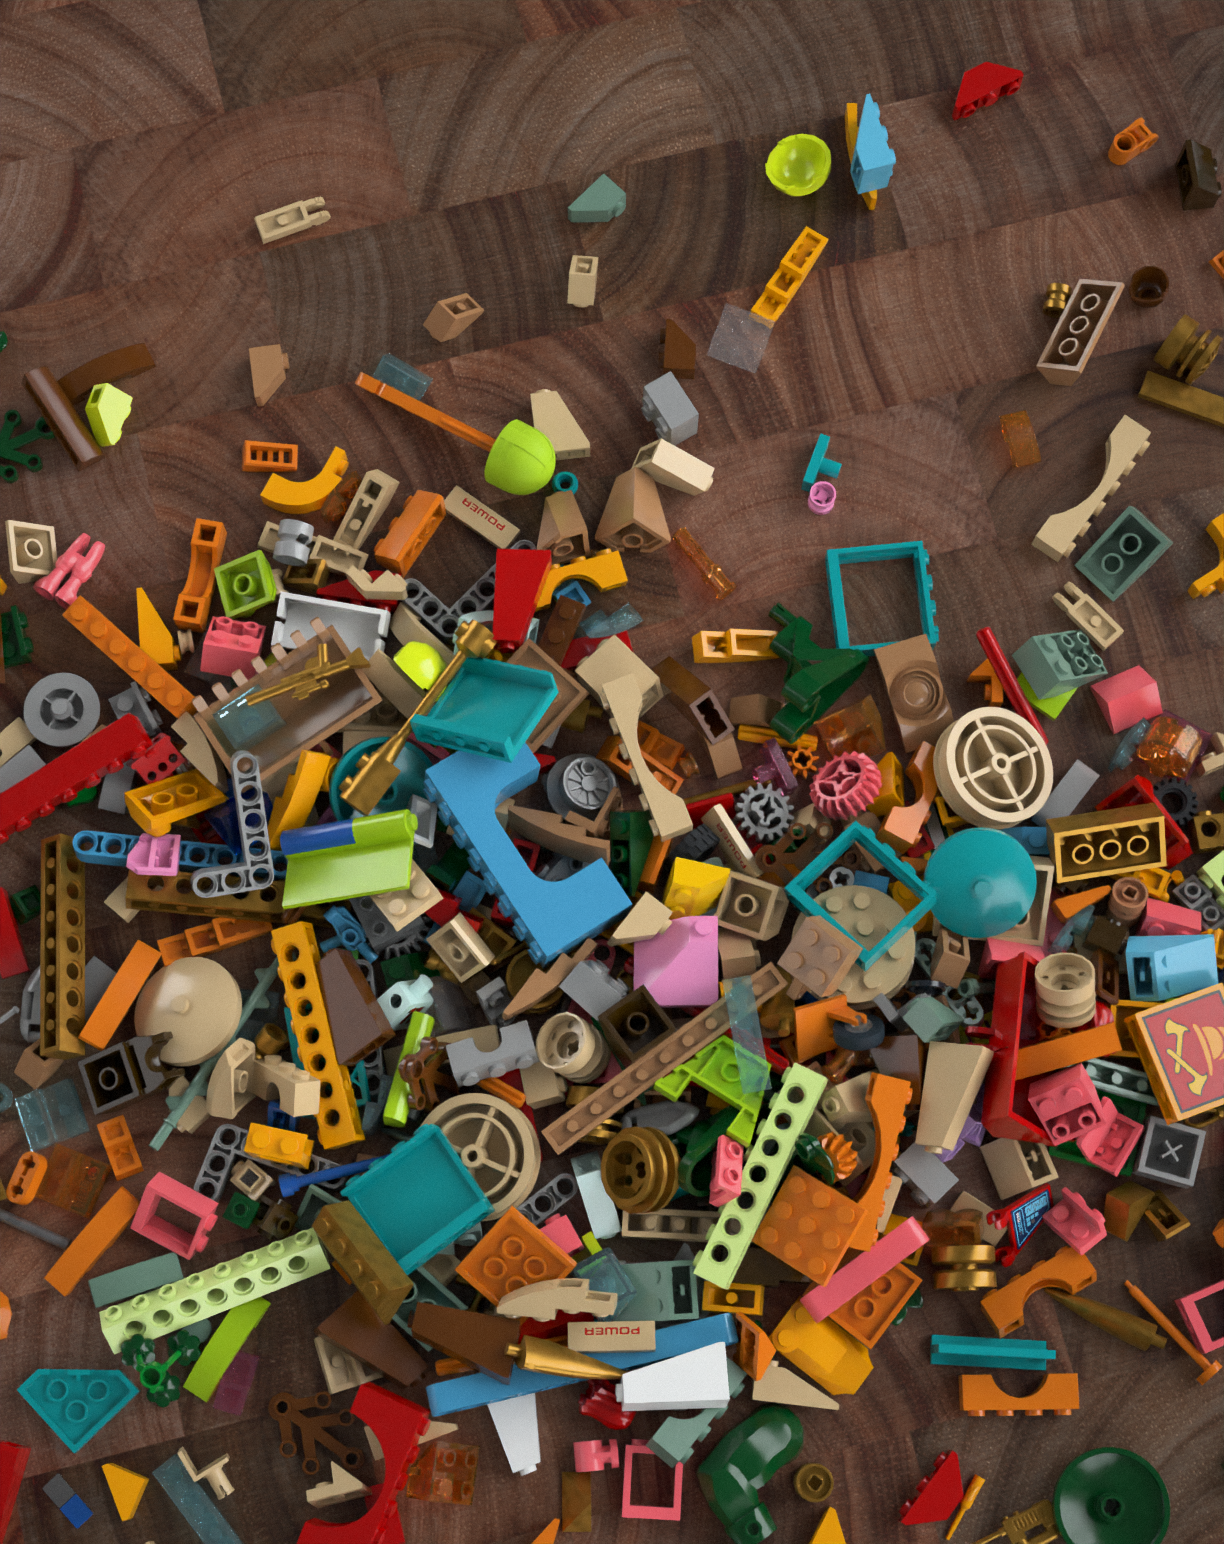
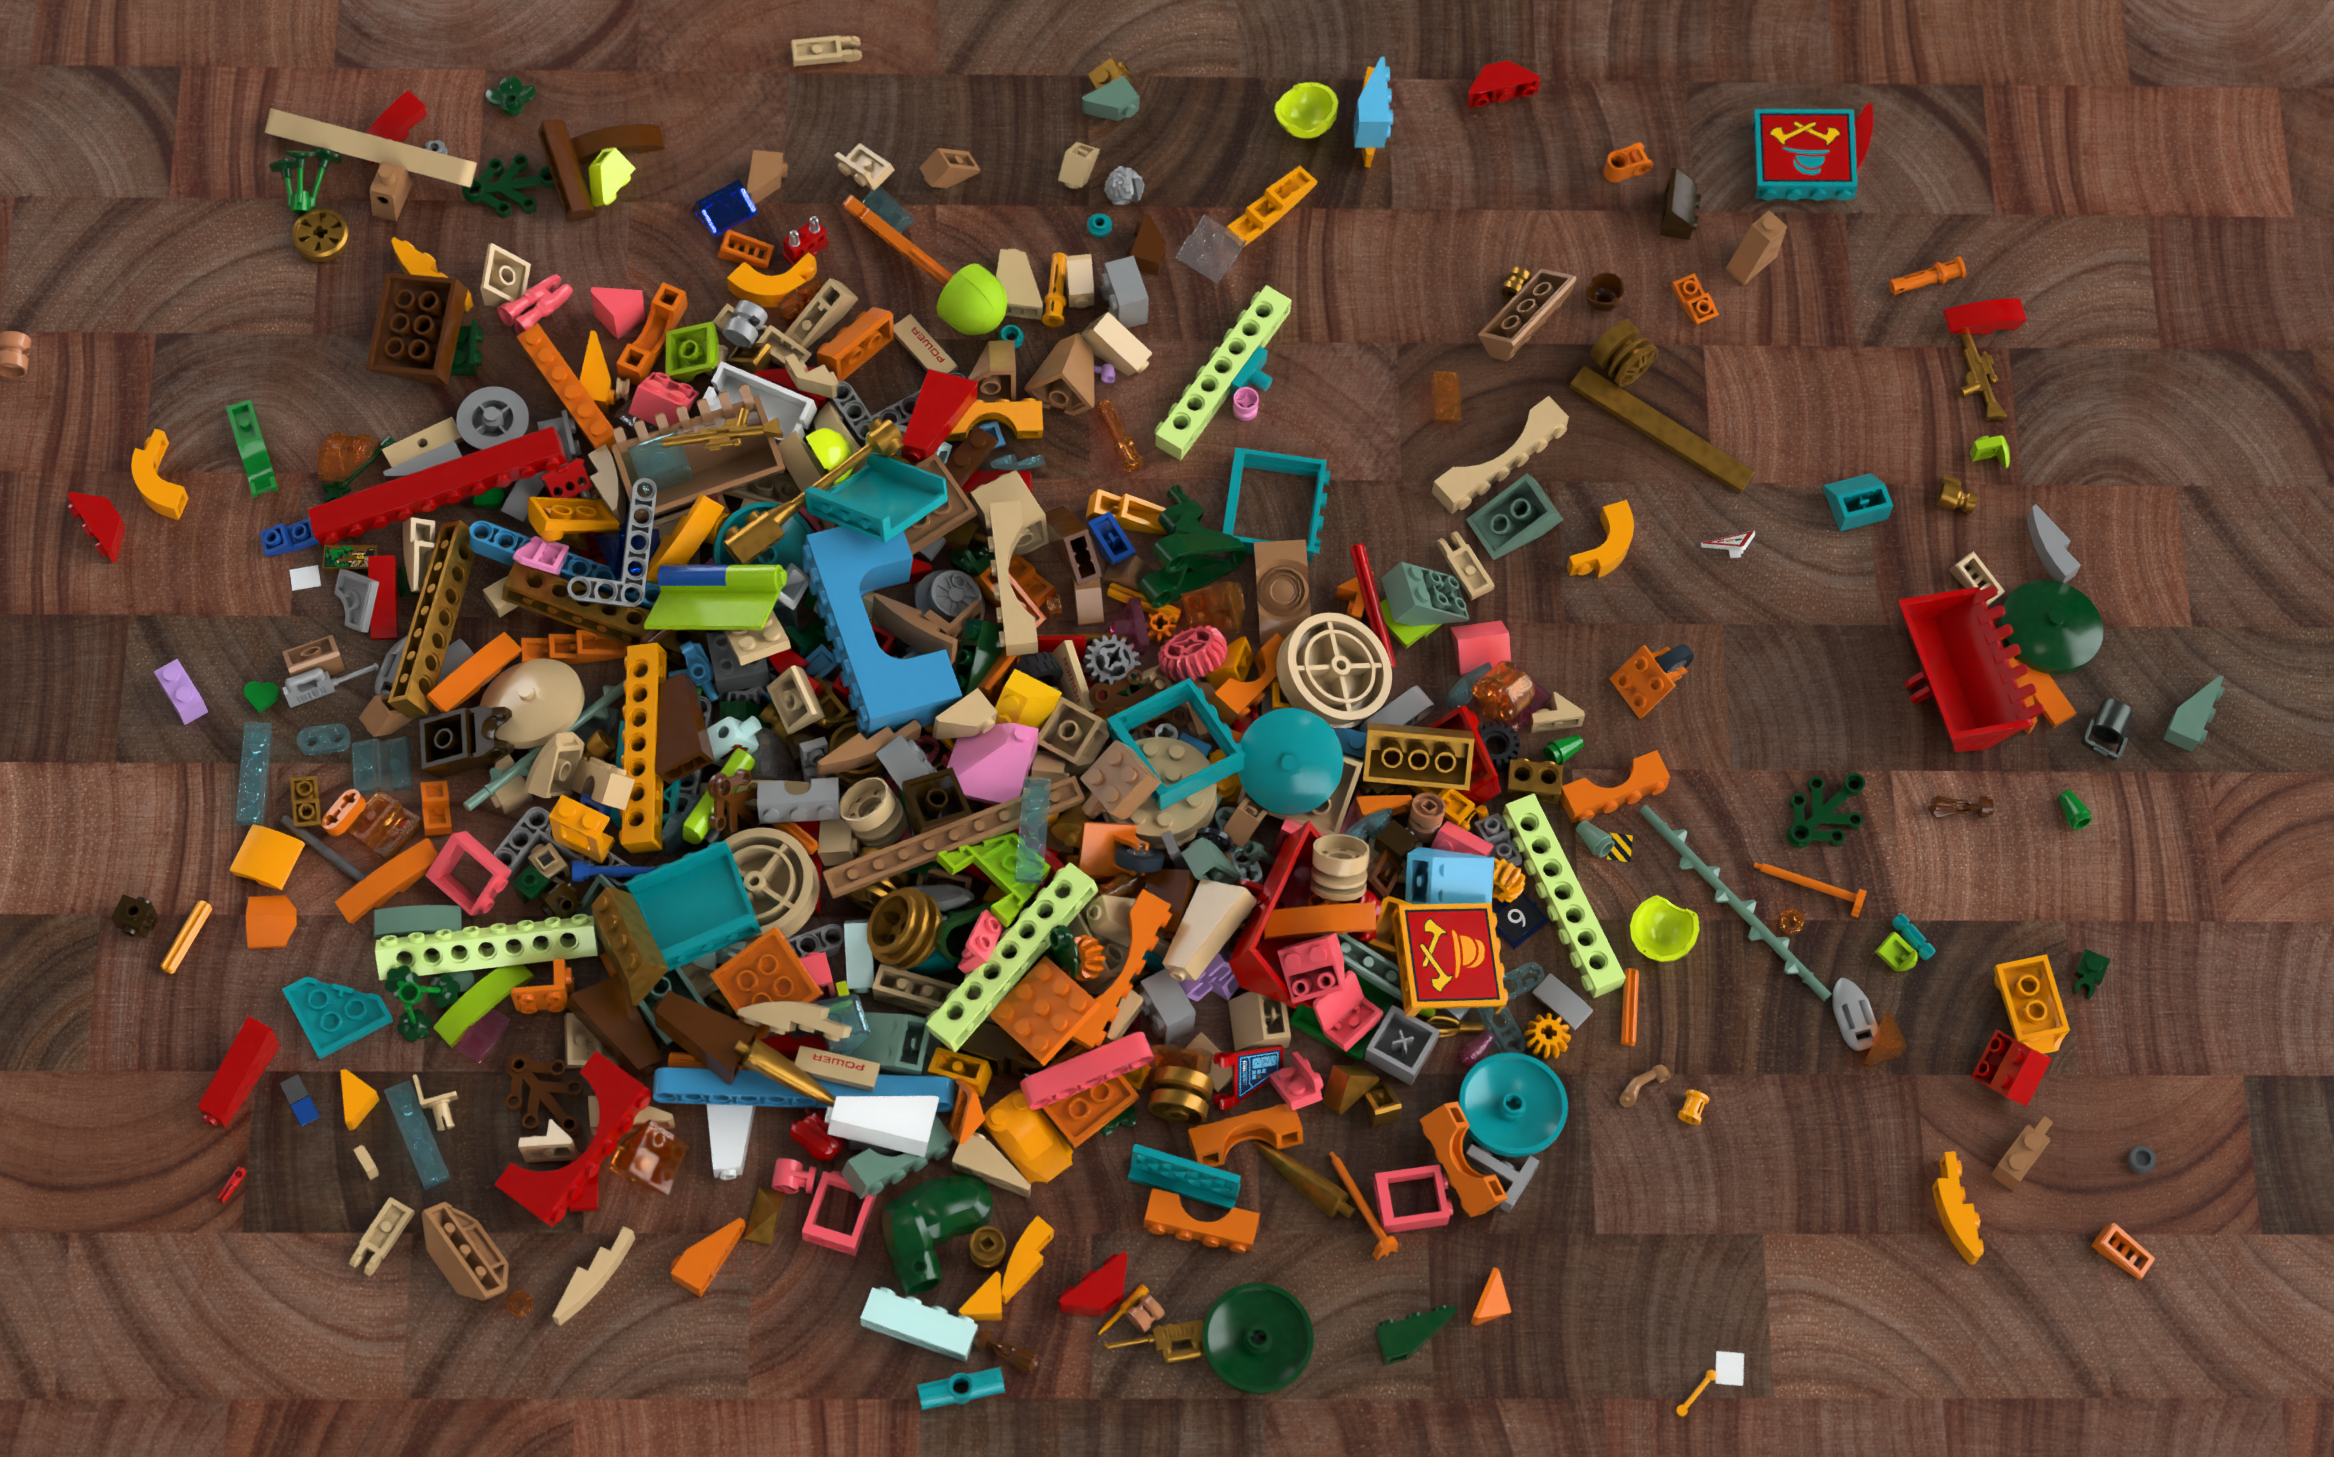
camera: 10 degrees right, 10 degrees down
(25, 873) = (418, 550): none -> tan slope
(158, 557) = (618, 309): none -> coral slope
(237, 419) = (725, 208): none -> clear blue slope
(304, 1310) = (548, 997): none -> orange bracket
(328, 435) = (808, 238): none -> red piece
(367, 336) = (864, 166): none -> tan bracket
(586, 174) = (1108, 72): none -> pearl gold bracket
(597, 739) = (972, 560): none -> dark green bracket
(598, 432) = (1055, 299): none -> light orange pin
(620, 408) = (1079, 281): none -> tan slope
(621, 347) = (1099, 231): none -> teal plate
(635, 293) = (1124, 186): none -> light grey piece
(673, 498) = (1107, 373): none -> lavender hand
(728, 681) = (1110, 539): none -> blue slope
(764, 556) = (1179, 441): none -> yellowish green brick
(852, 1481) = (1026, 1257): none -> light orange slope
(984, 1512) = (1145, 1313): none -> nougat wheel

